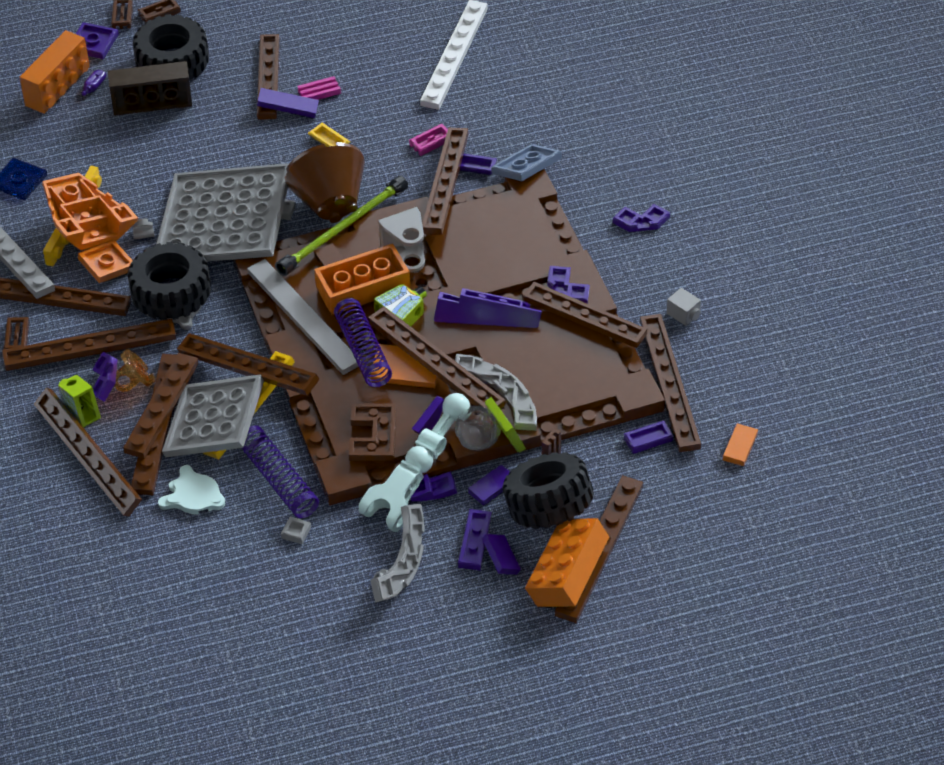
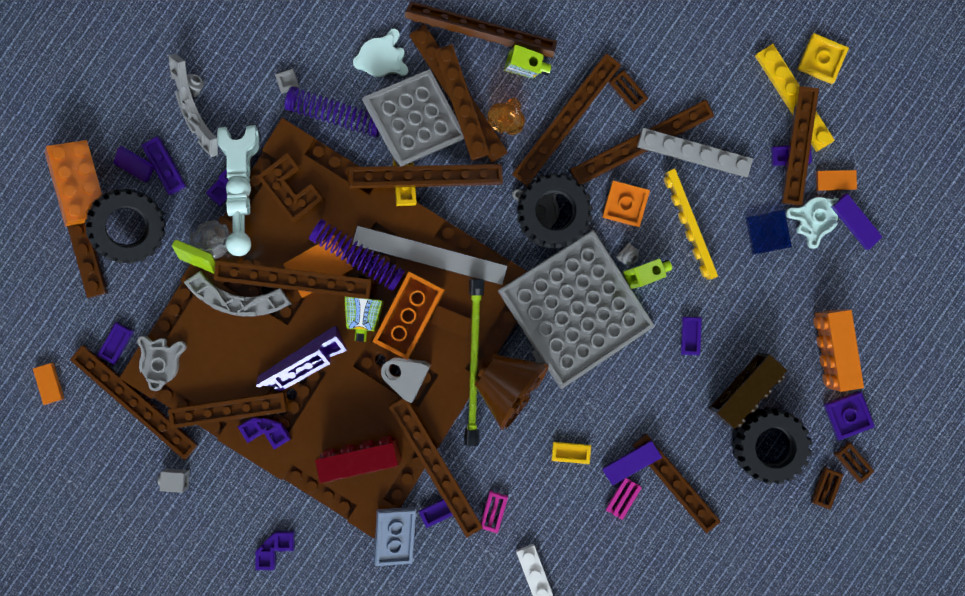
camera: 145 degrees right, 40 degrees up
(85, 213) = (678, 224): orange wedge -> none
(93, 82) = (805, 371): dark purple piece -> none
(106, 368) = (520, 92): dark purple tile -> none
(144, 201) = (647, 273): none -> lime torso
(154, 152) = (691, 336): none -> dark purple tile
(430, 416) = (258, 226): dark purple tile -> none
(489, 486) = (187, 218): dark purple tile -> none
(501, 211) = (359, 459): none -> dark red brick
(554, 444) = (156, 269): reddish brown tile -> none
(614, 386) = (159, 361): none -> light grey tile

